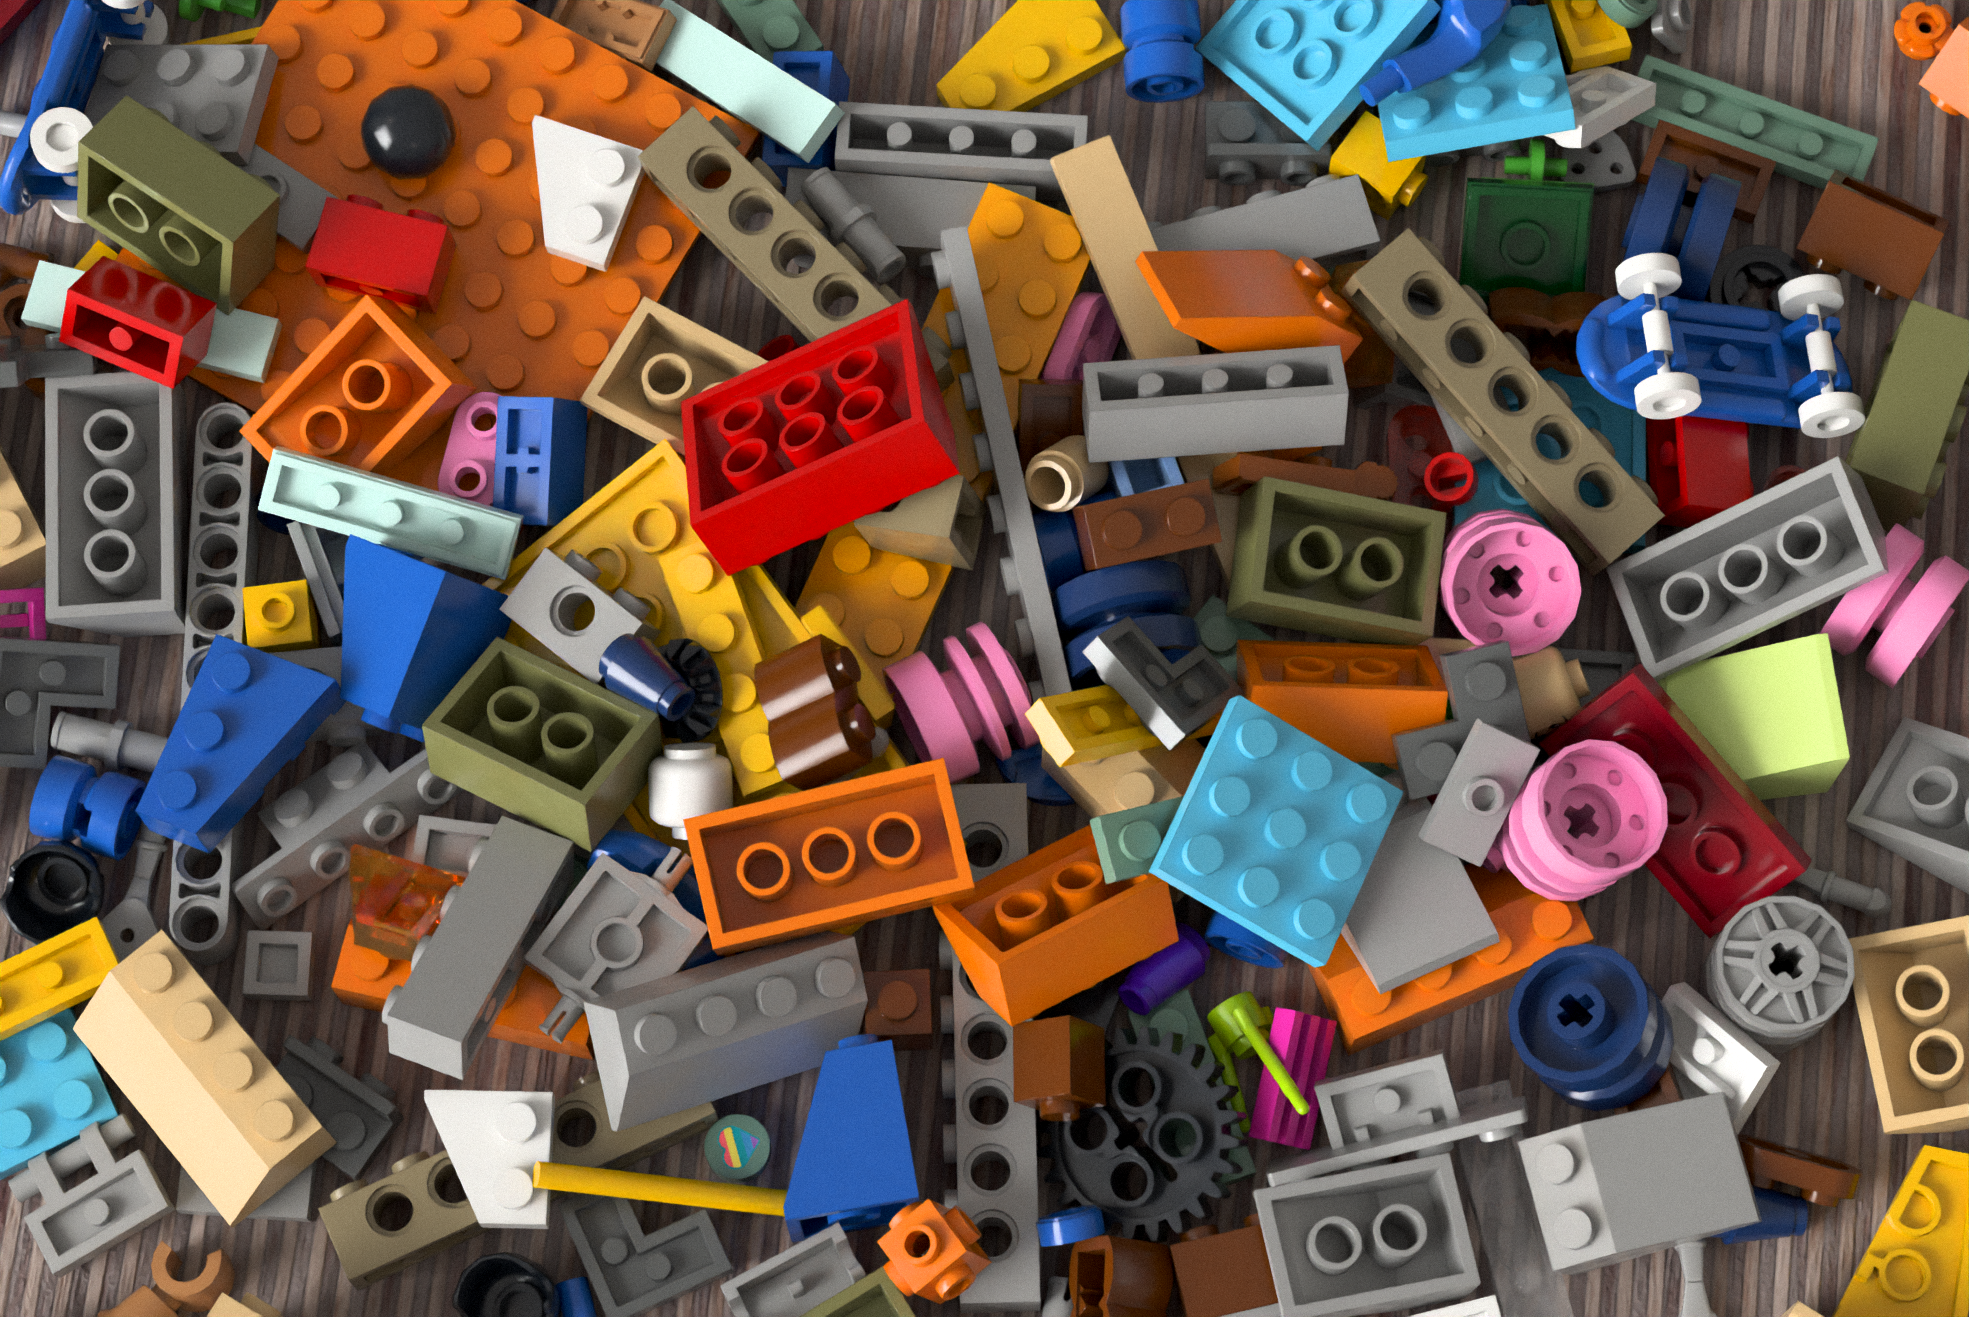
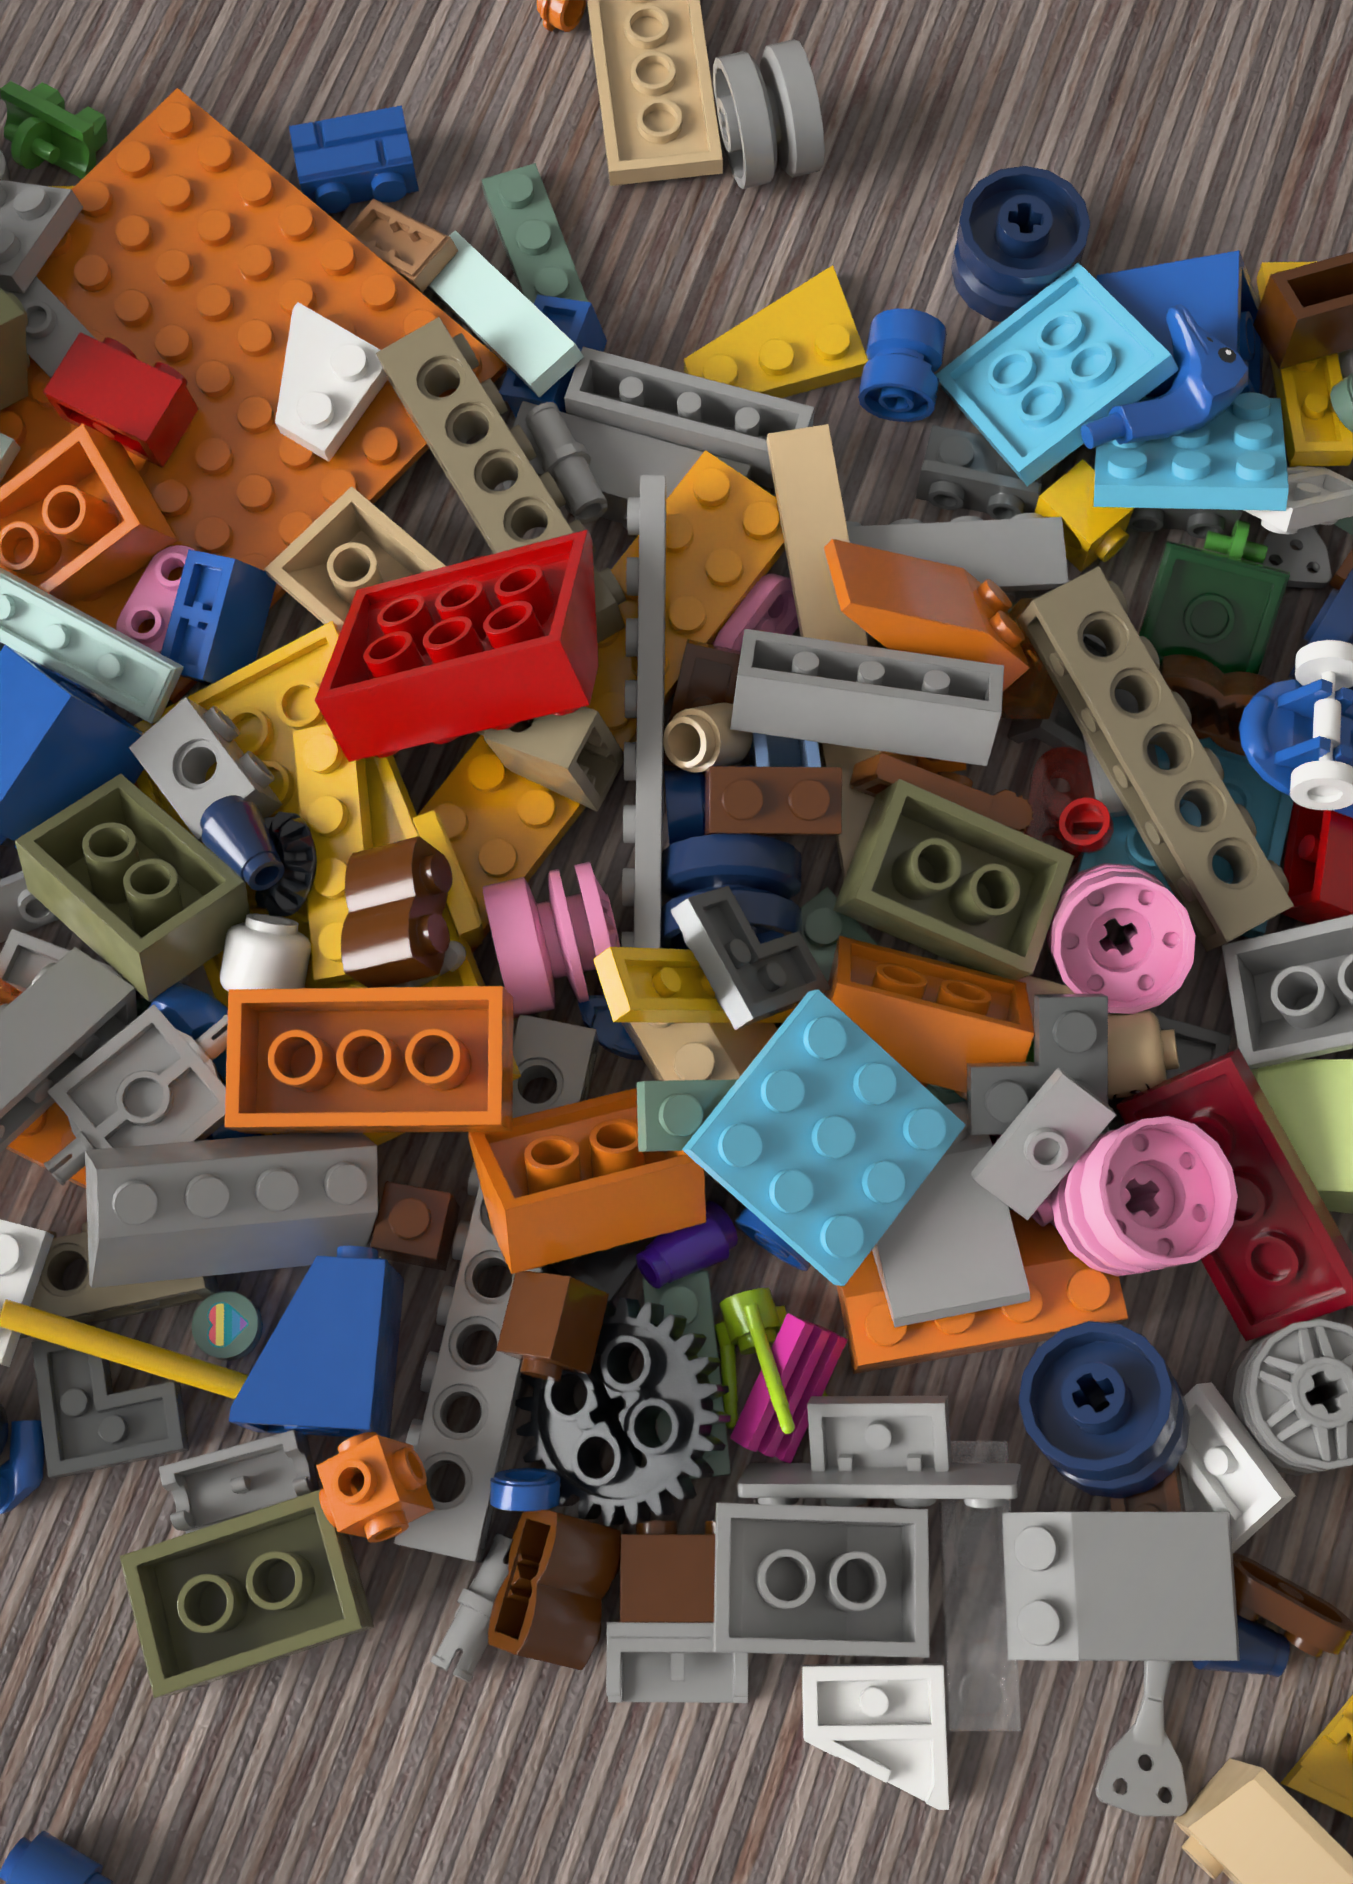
camera: 15 degrees right, 0 degrees up
(408, 132) = (178, 294): black hair -> none

